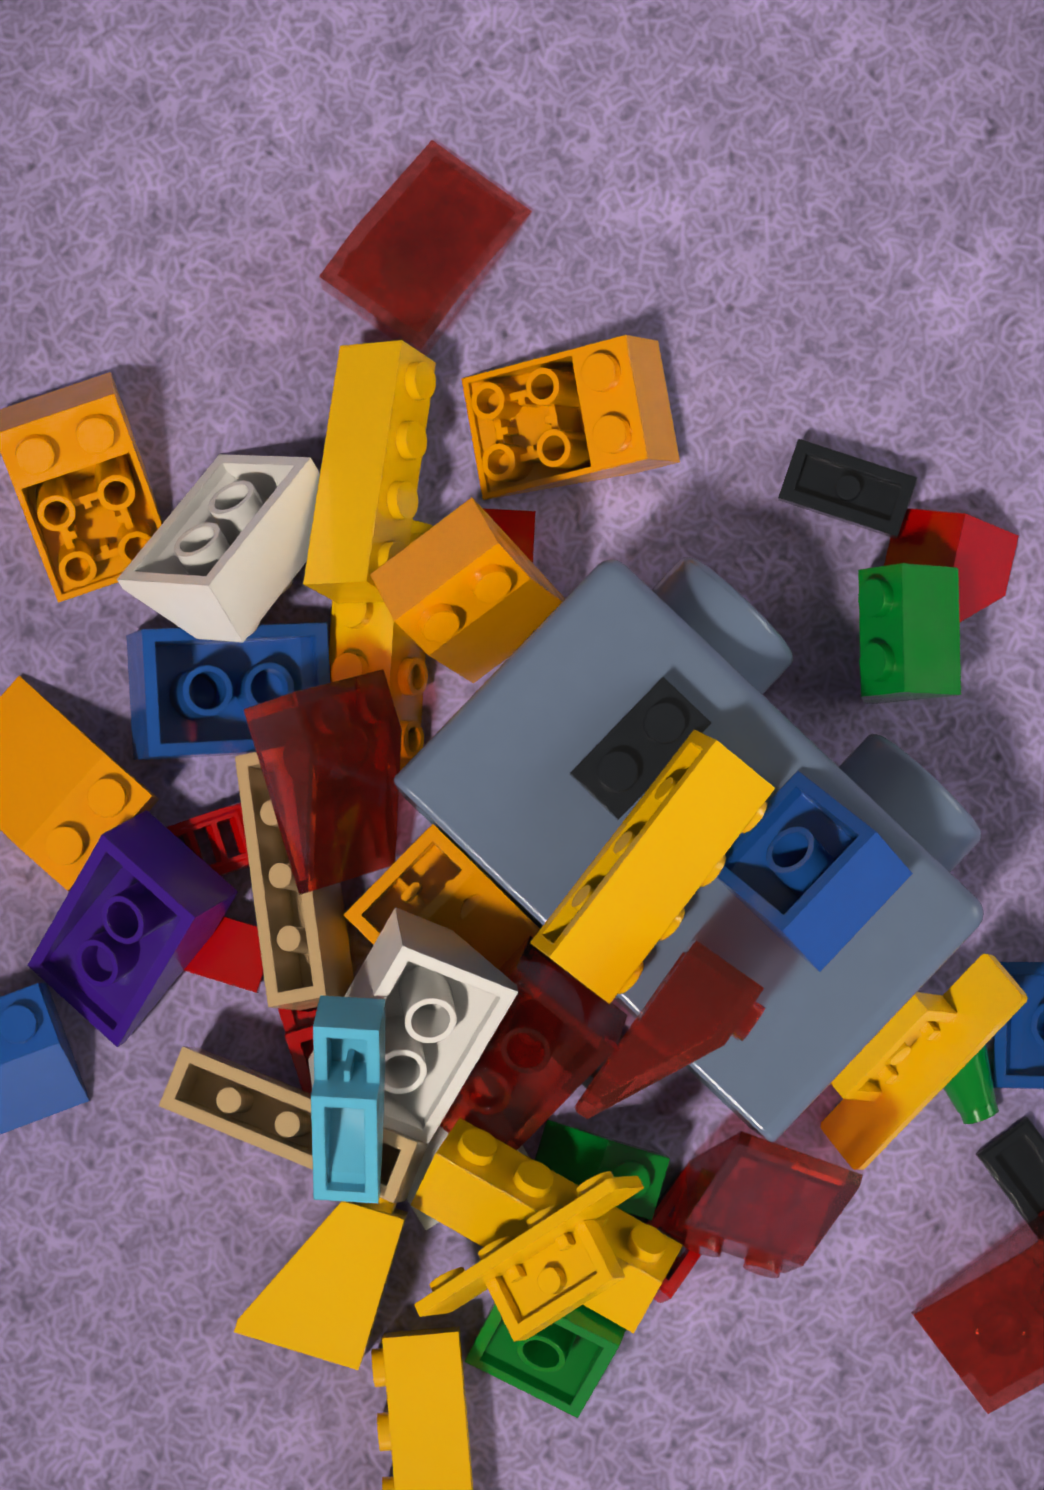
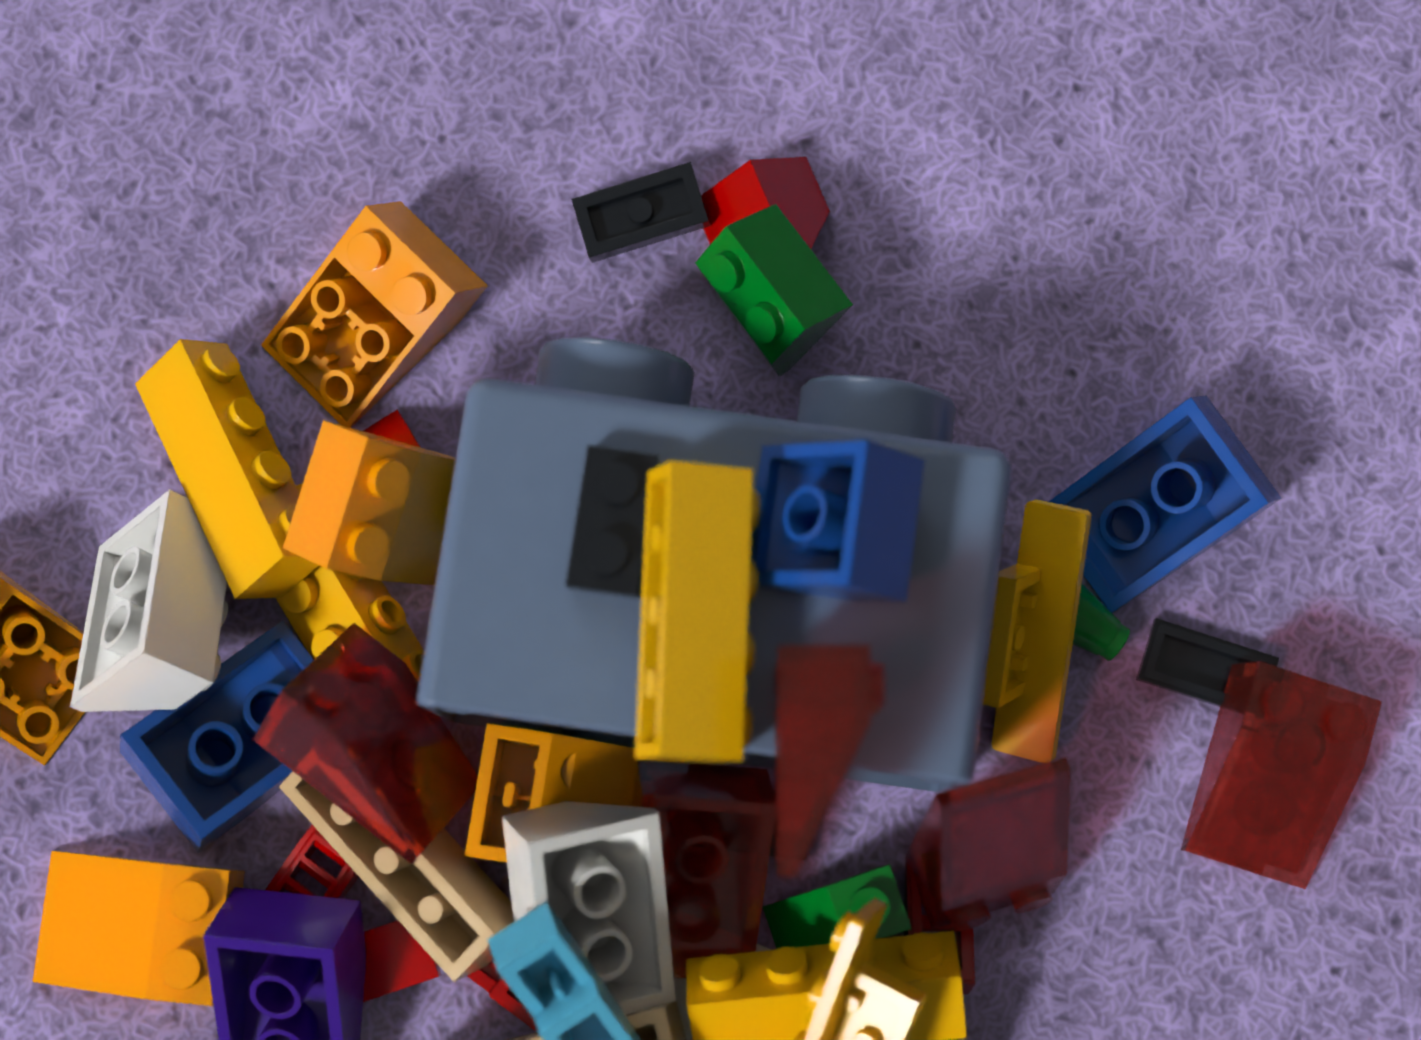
camera: 35 degrees left, 5 degrees down
(424, 248) = (152, 261): clear red slope -> none

